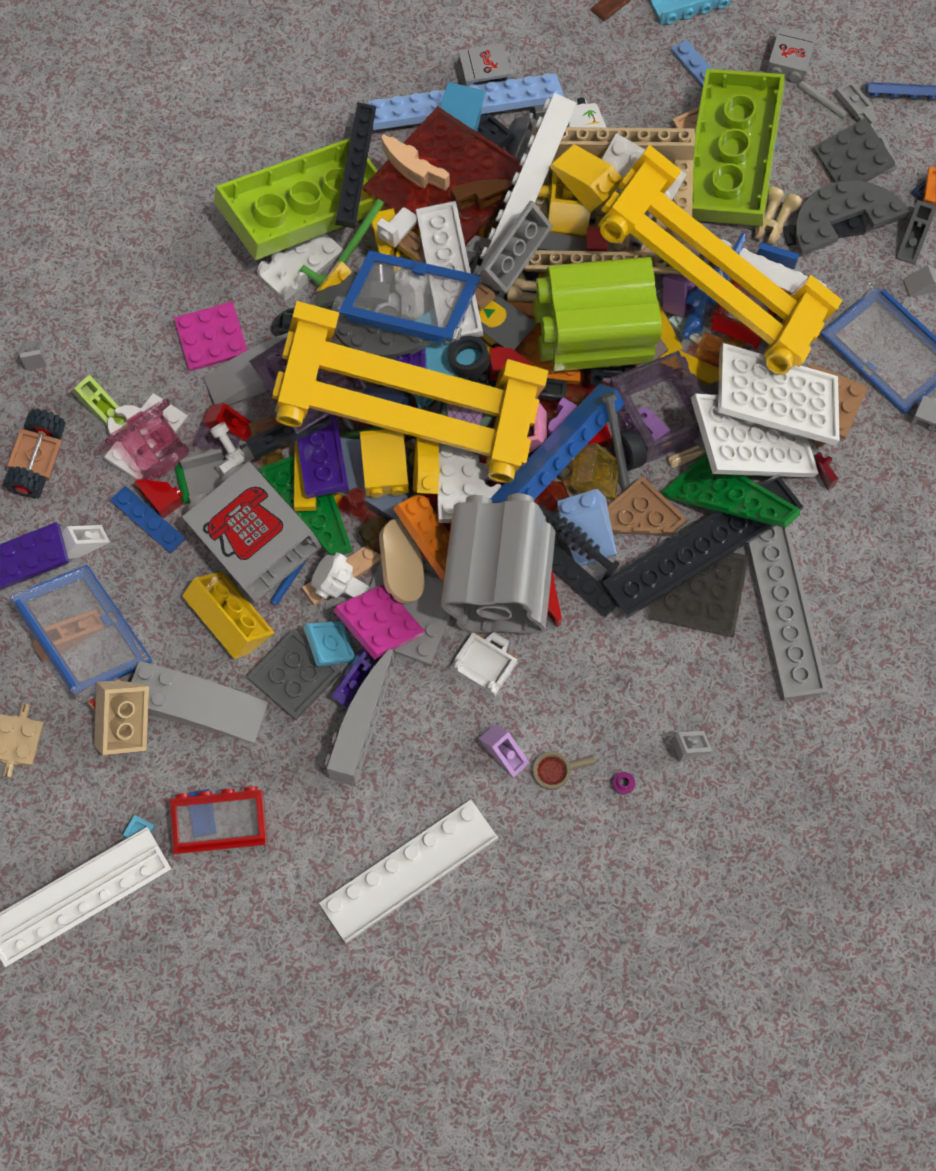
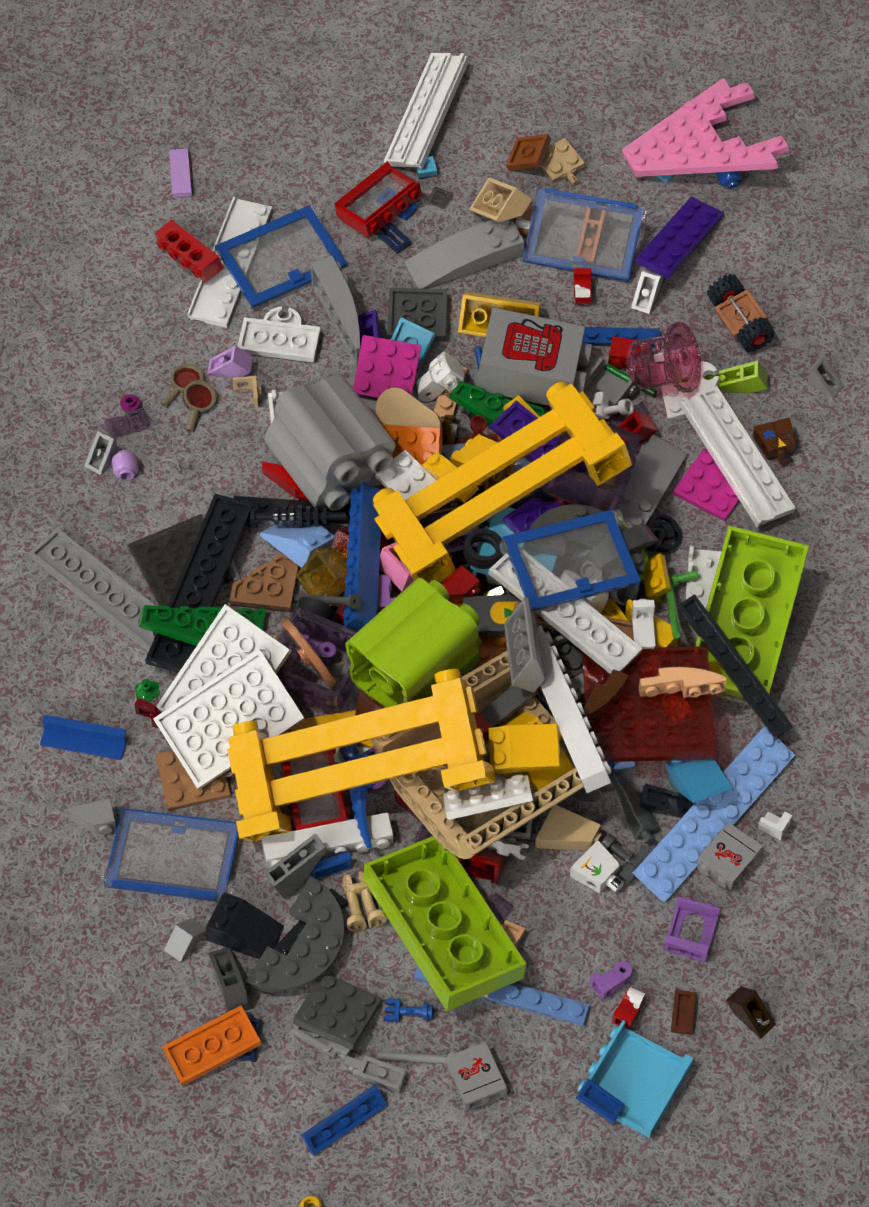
camera: 140 degrees right, 10 degrees down
(36, 764) = (528, 152): none -> dark orange plate
(126, 330) = (776, 440): none -> reddish brown torso
(131, 588) = (582, 285): none -> red leg
(158, 788) = (439, 197): none -> clear smoke tile
(173, 334) = (737, 456): none -> white plate
(239, 761) = (401, 246): none -> dark blue tile
(360, 834) = (278, 254): none -> door
(369, 1022) = (180, 172): none -> lavender tile
(430, 66) = (775, 825): none -> white panel
(435, 747) = (279, 336): none -> white plate
(435, 868) = (188, 251): none -> red brick
(501, 705) = (252, 384): none -> tan bracket
(560, 737) = (198, 398): none -> piece
(565, 27) = (685, 947): none -> medium lavender panel
(641, 49) = (612, 980): none -> medium lavender leg
(641, 764) = (129, 423): none -> clear purple slope
(647, 26) = (629, 1007): none -> red leg
(677, 390) = (307, 654): none -> nougat plate
(677, 717) = (125, 465): none -> lavender head
(808, 134) = (426, 1011): none -> blue hinge
(810, 260) = (295, 867): none -> dark grey slope
(811, 499) = (147, 690): none -> green plant
(880, 257) = (242, 927): none -> black slope
(895, 492) = (83, 737): none -> blue panel

